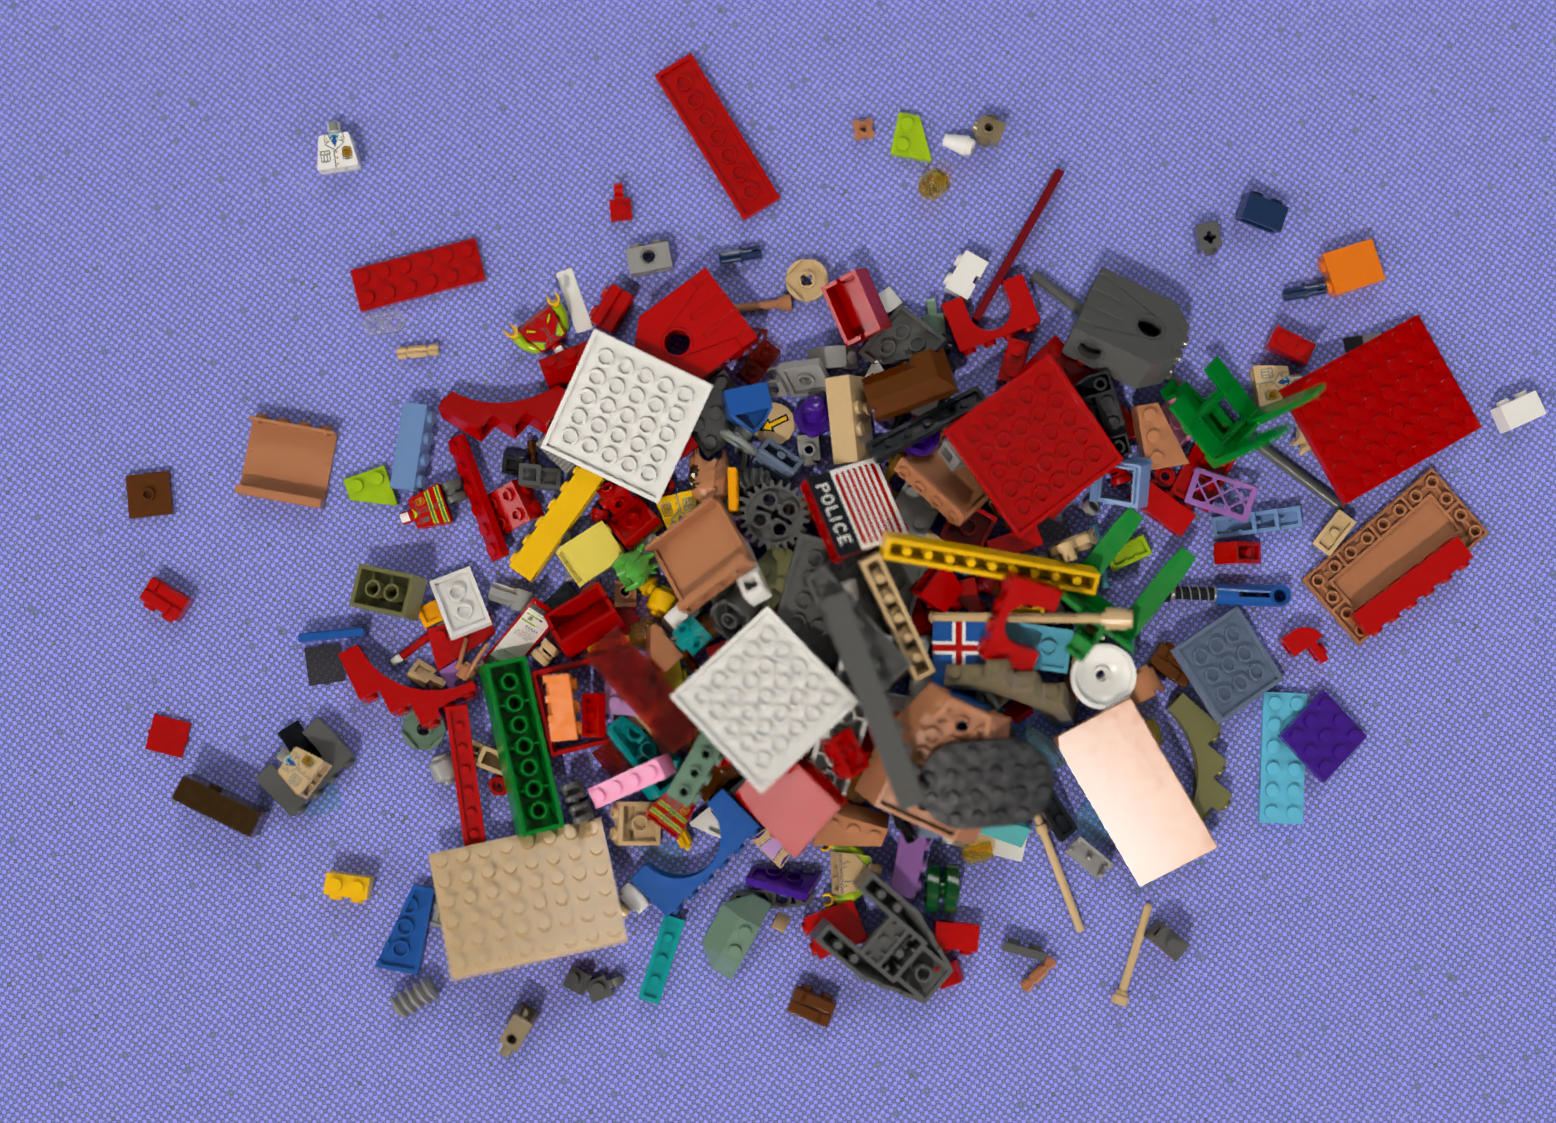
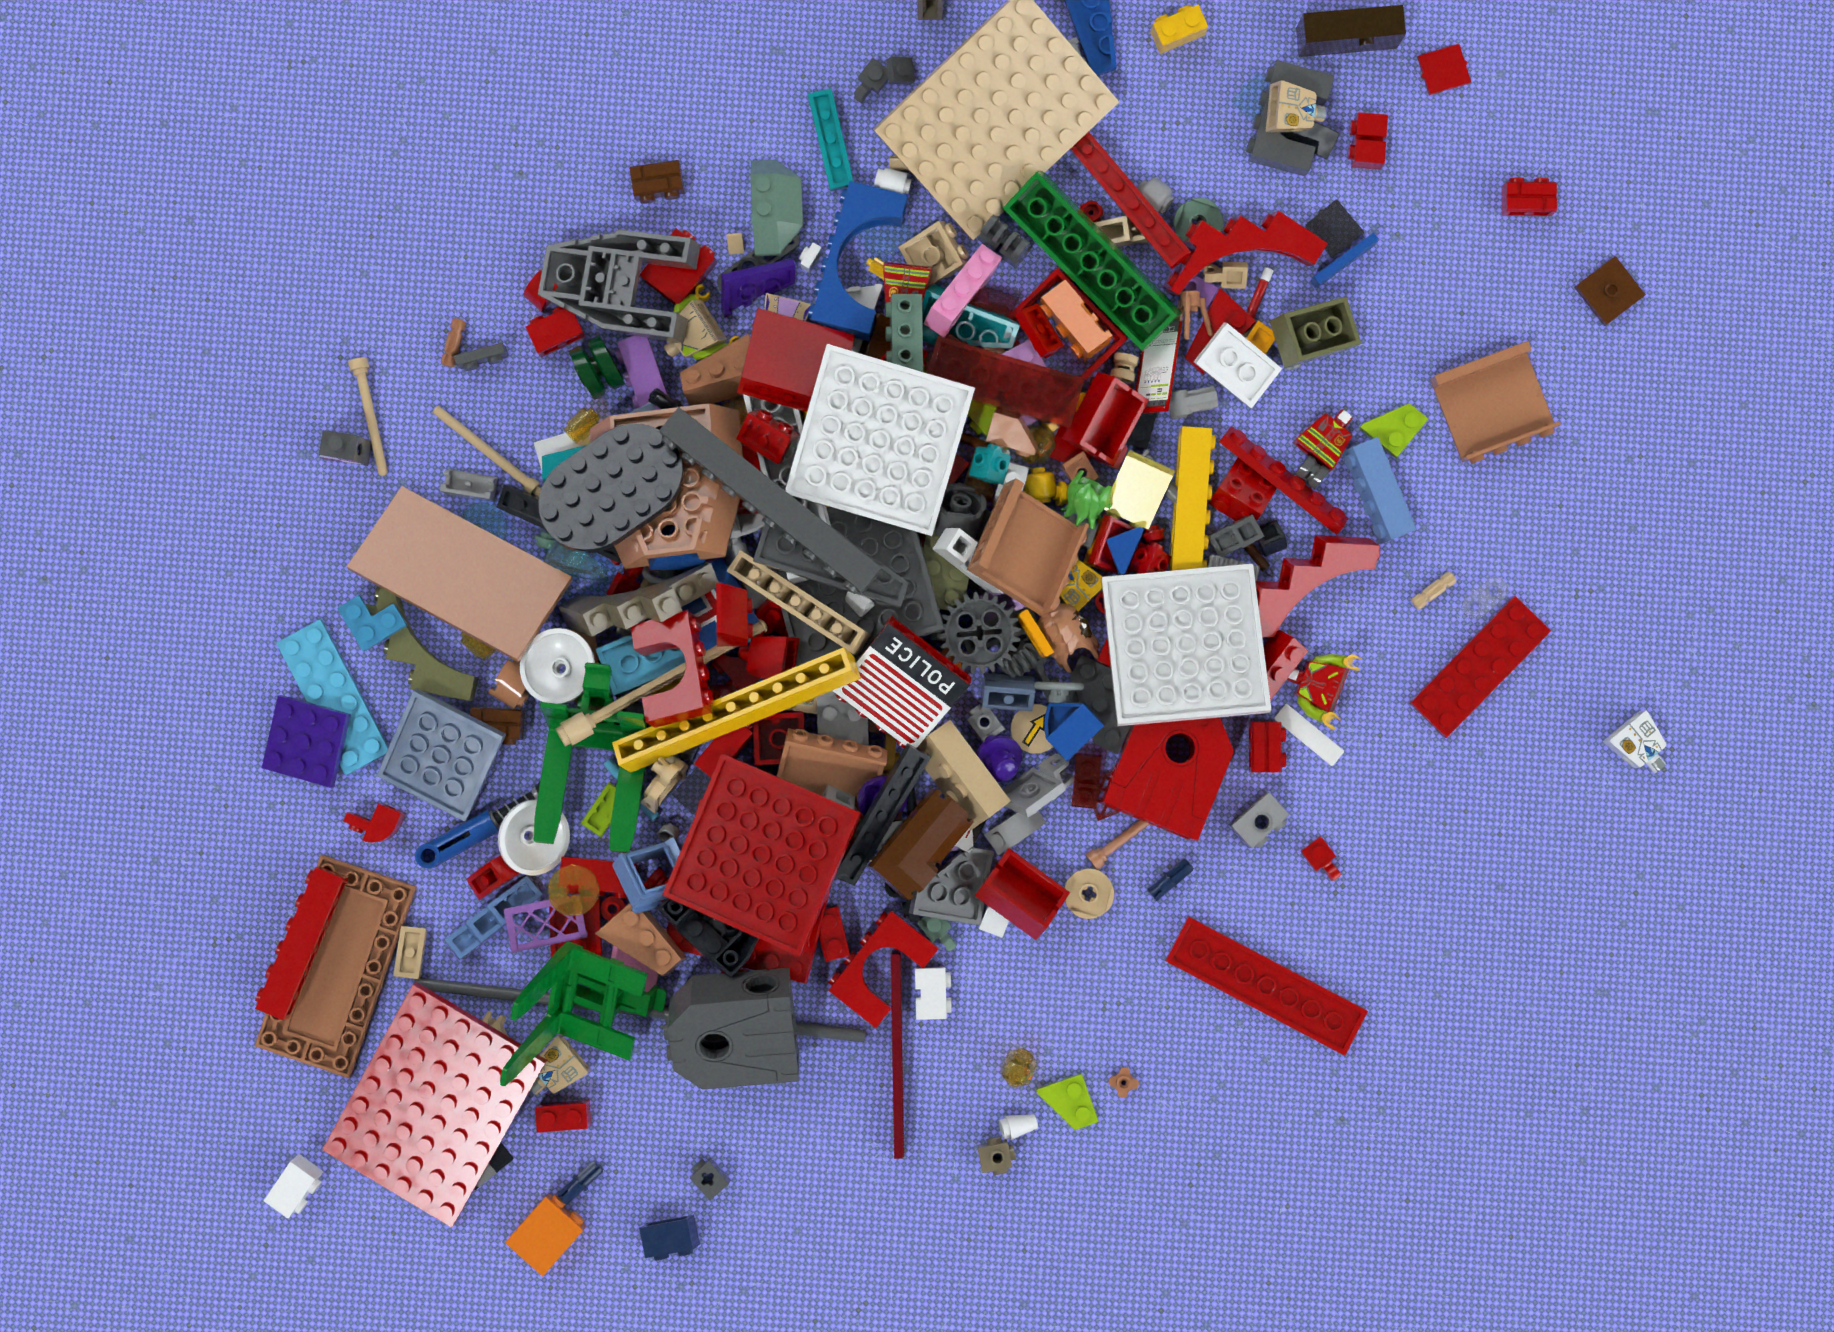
camera: 150 degrees right, 0 degrees up
(261, 711) = (1368, 145): none -> red piece
(629, 516) = (1123, 548): none -> blue slope
(731, 877) = (810, 257): none -> white plate
(951, 634) = (731, 616): none -> red slope
(1058, 781) = (544, 540): none -> sand green plate
(1192, 494) = (574, 904): none -> clear yellow plate
(1208, 556) = (525, 854): none -> white dish
(1227, 790) = (370, 628): none -> dark azure plate

